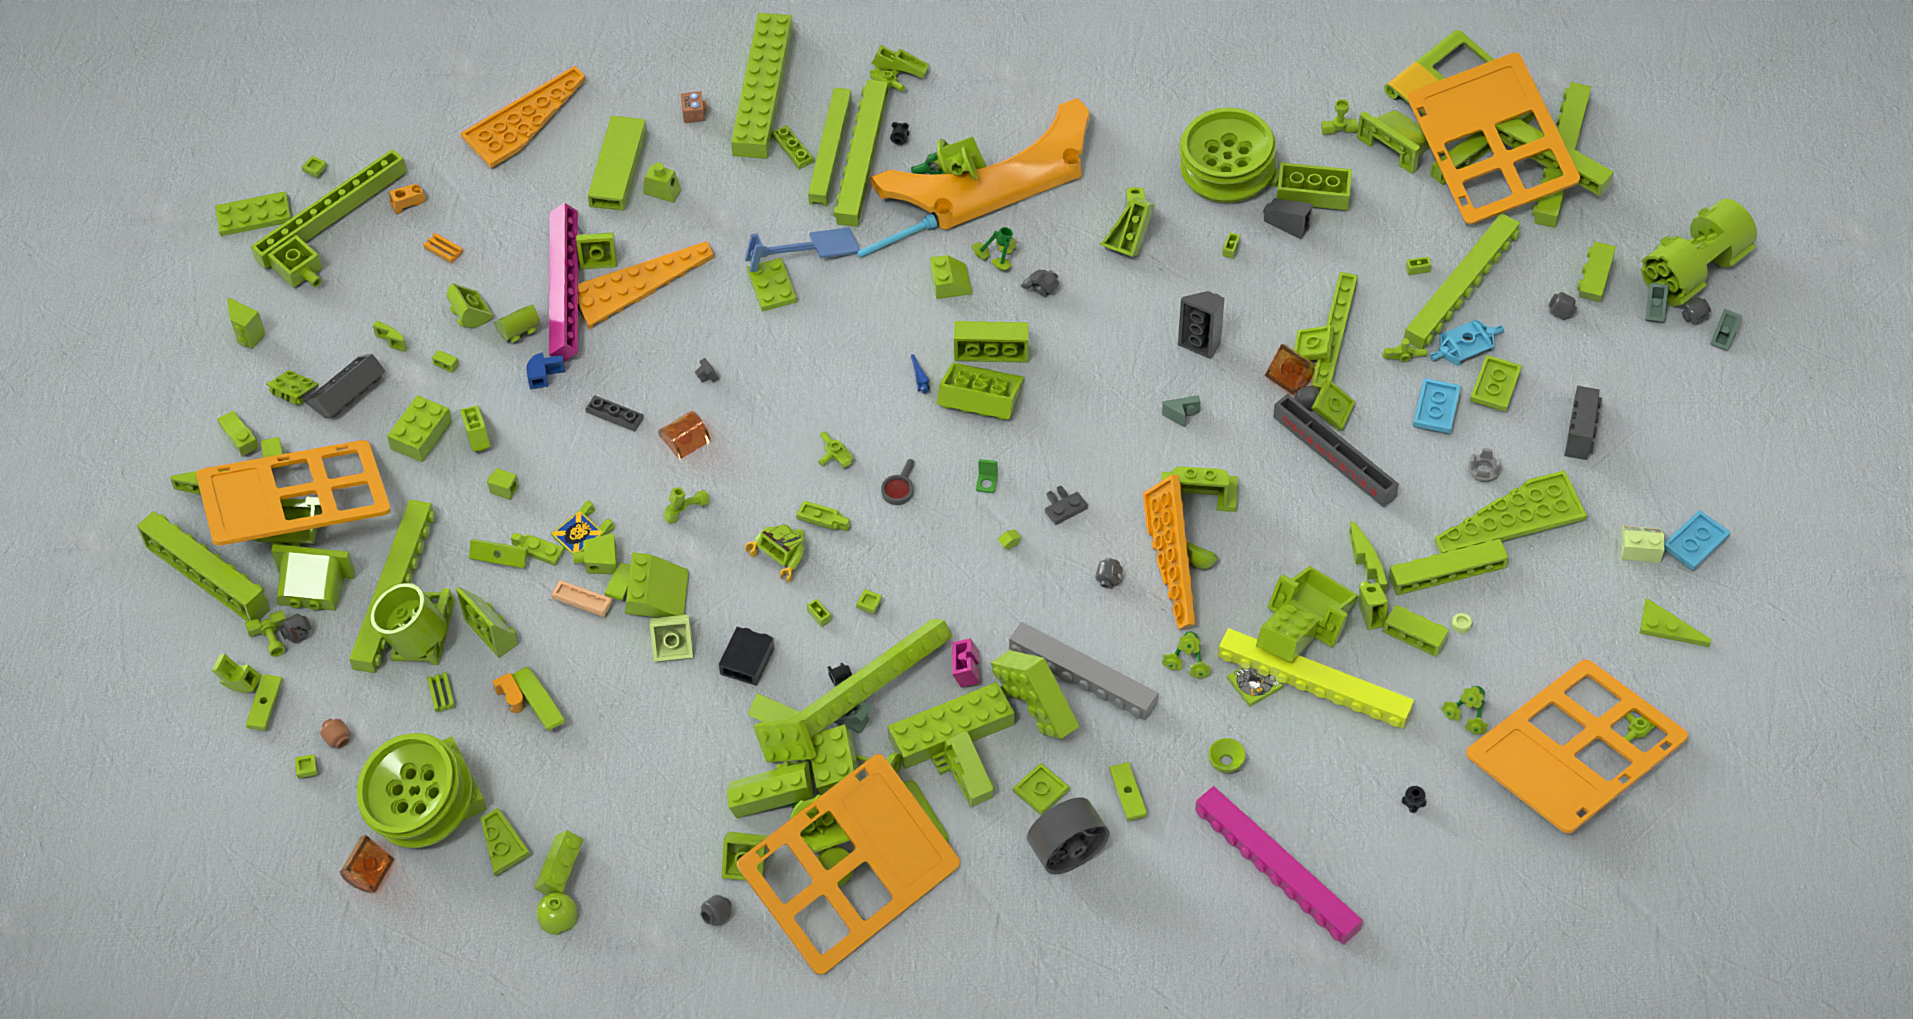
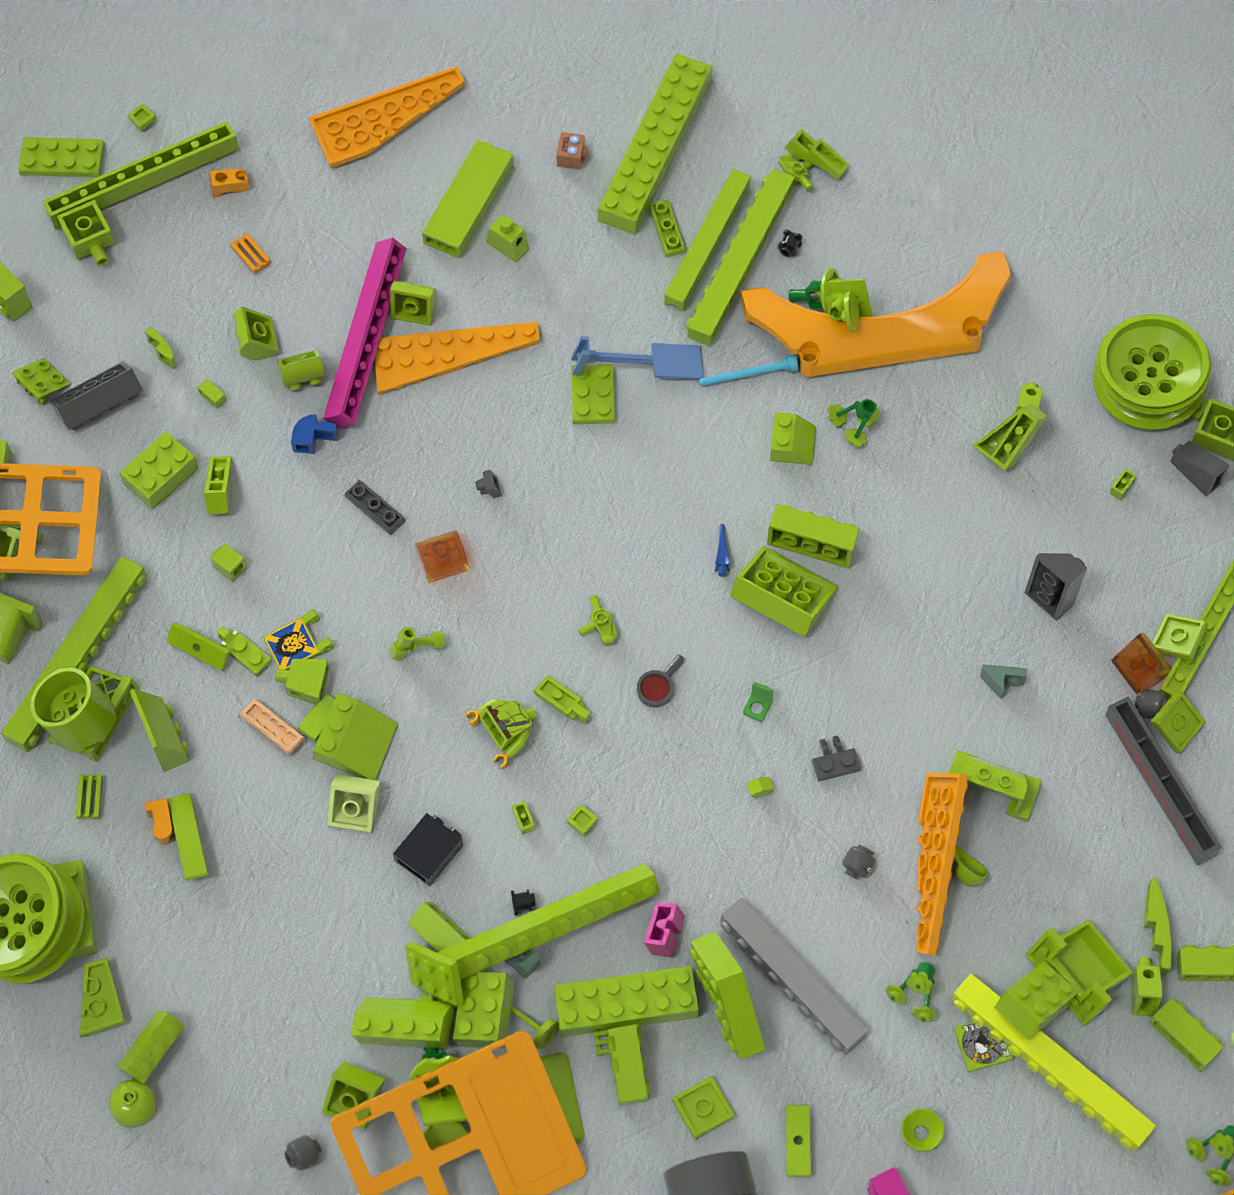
camera: 15 degrees right, 10 degrees up
(1043, 282) = (894, 474): dark grey head -> none

